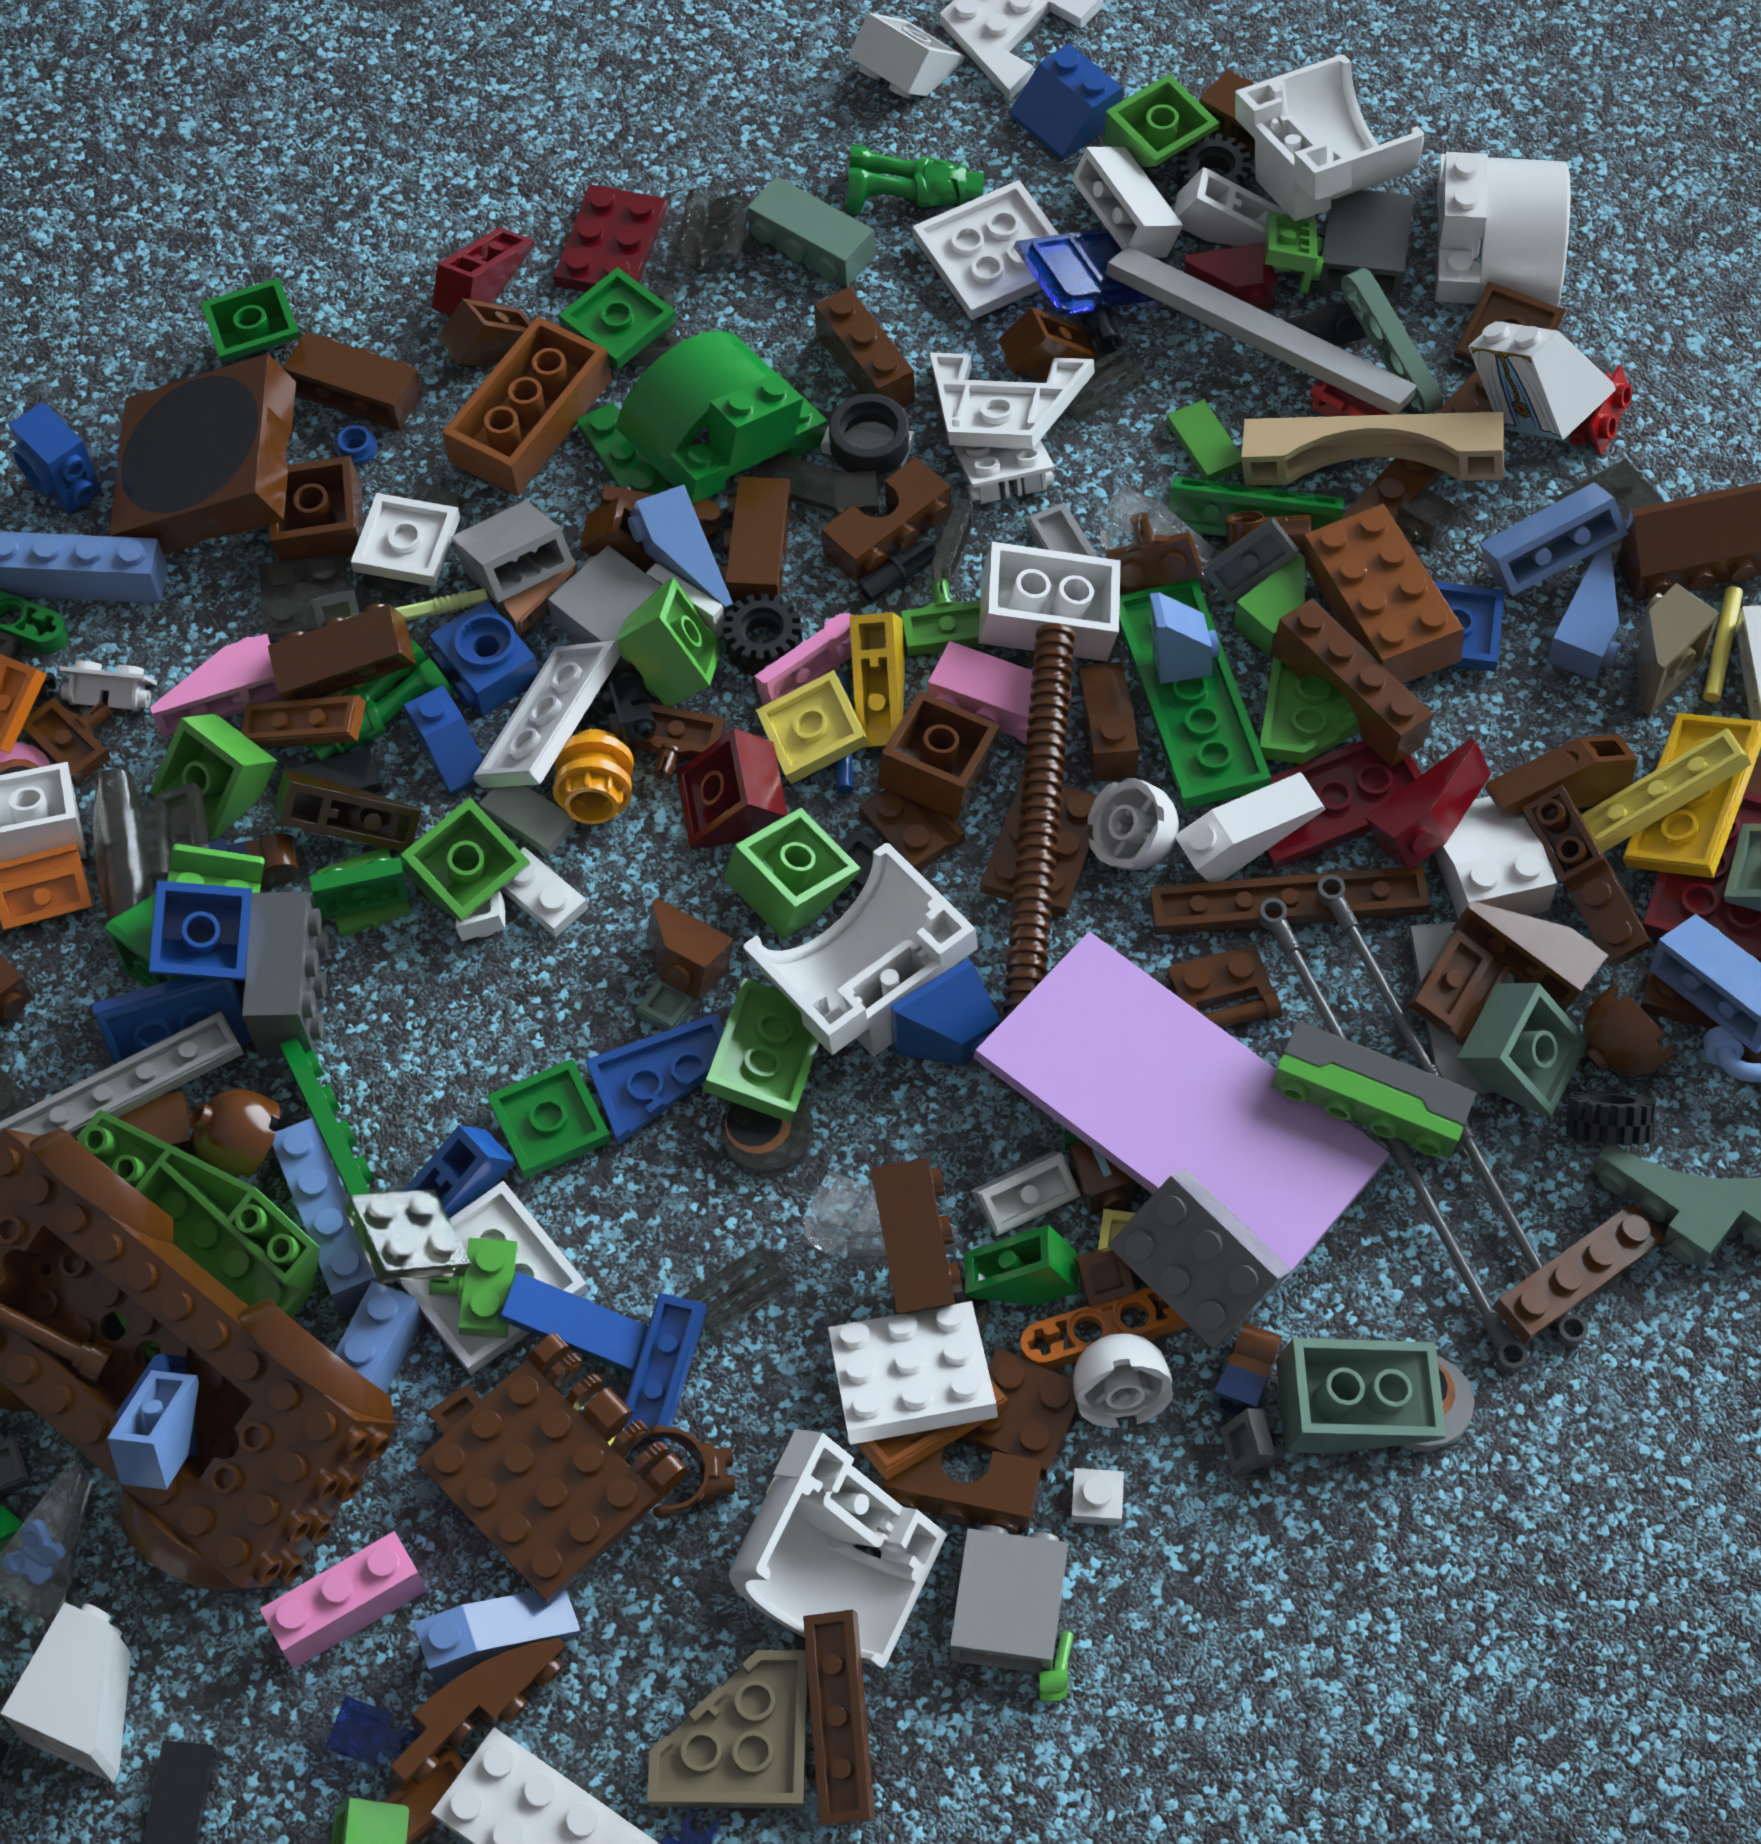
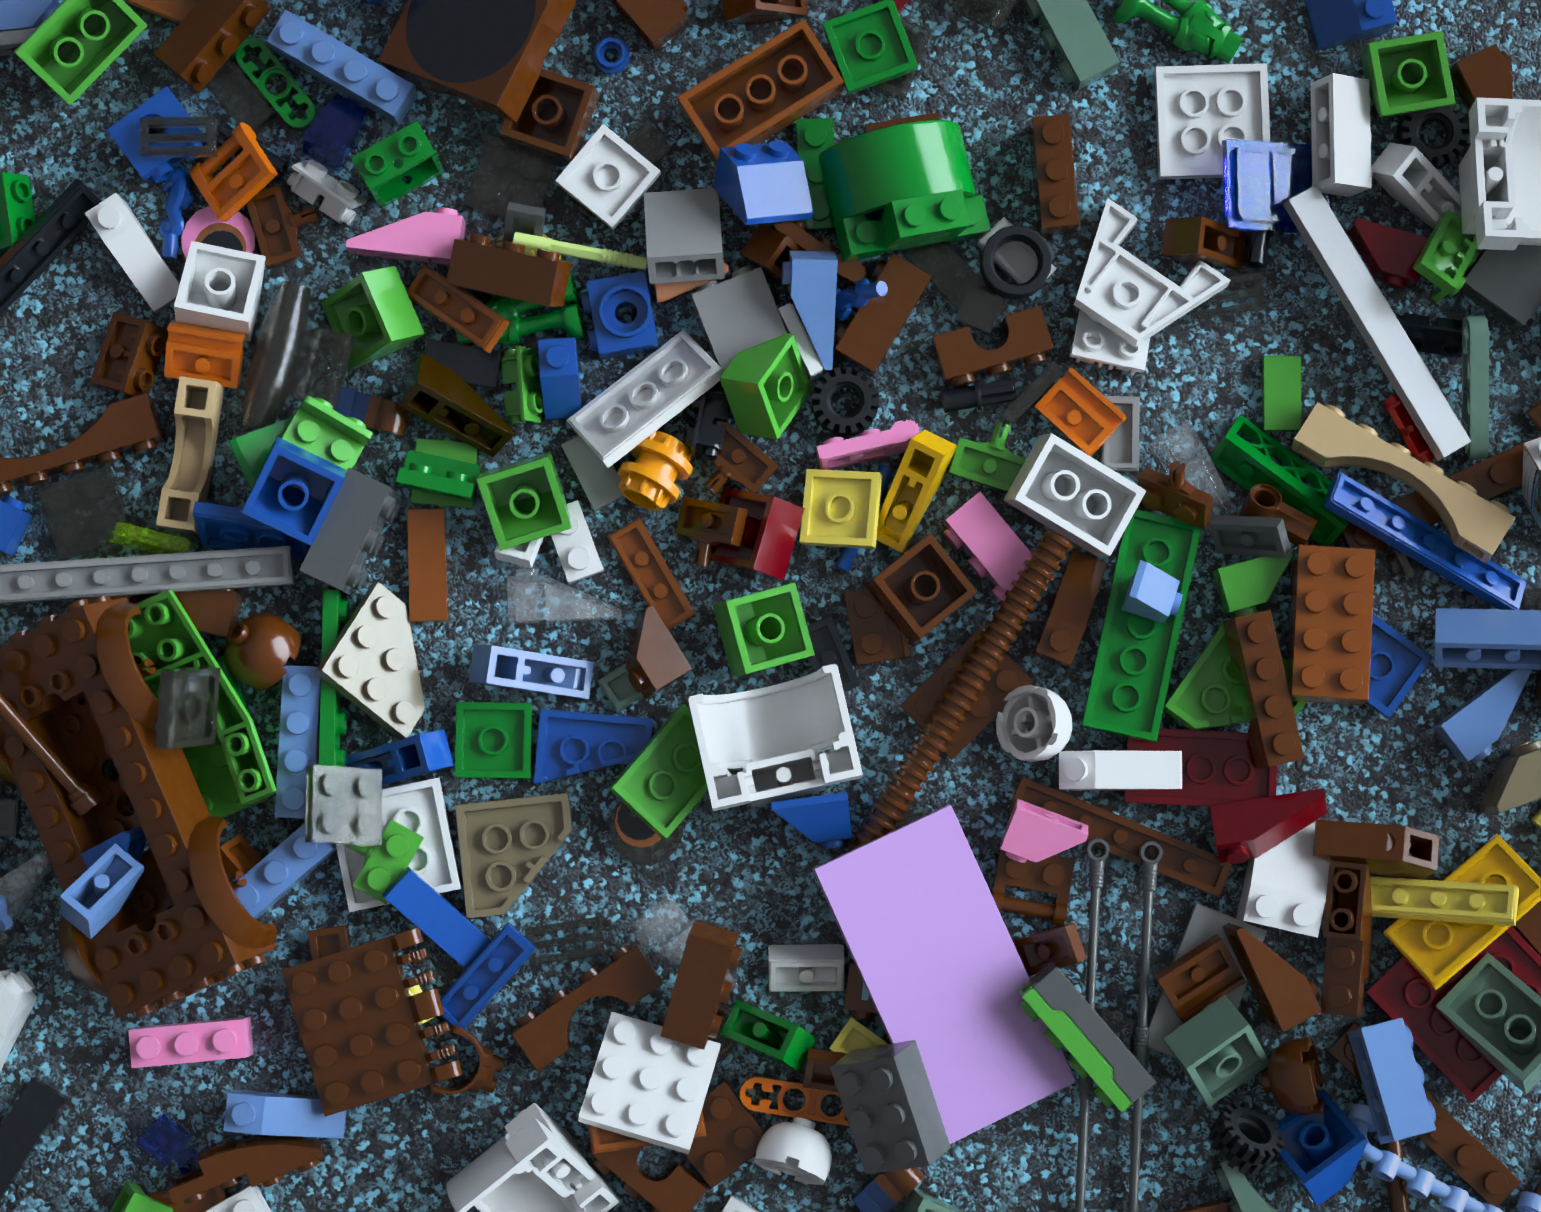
camera: 20 degrees right, 25 degrees up
(34, 1085) = (147, 539): none -> clear neon green tile
(69, 983) = (197, 426): none -> tan arch
(93, 629) = (335, 132): none -> clear blue hand
(174, 1192) = (187, 707): none -> clear smoke plate
(199, 618) = (394, 158): none -> green window
(377, 1094) = (377, 663): none -> plate
(388, 985) = (427, 565): none -> dark orange tile
(401, 755) = (522, 368): none -> bright green hinge
(548, 950) = (546, 600): none -> clear slope
(551, 1030) = (530, 671): none -> medium blue slope
(568, 464) = (763, 183): none -> slope
(619, 1219) = (507, 846): none -> dark tan plate
(636, 880) = (651, 573): none -> dark orange tile
(679, 798) = (710, 525): none -> reddish brown plate
(726, 518) = (858, 298): none -> blue animal
(826, 1291) = (547, 1034): none -> reddish brown arch
(1009, 526) = (1080, 412): none -> orange plate
(1198, 922) = (1039, 833): none -> bright pink slope
(1276, 1027) = (1052, 944): none -> reddish brown slope
(1424, 490) = (1423, 543): none -> blue tile
(1700, 1099) = (1321, 1149): none -> blue slope

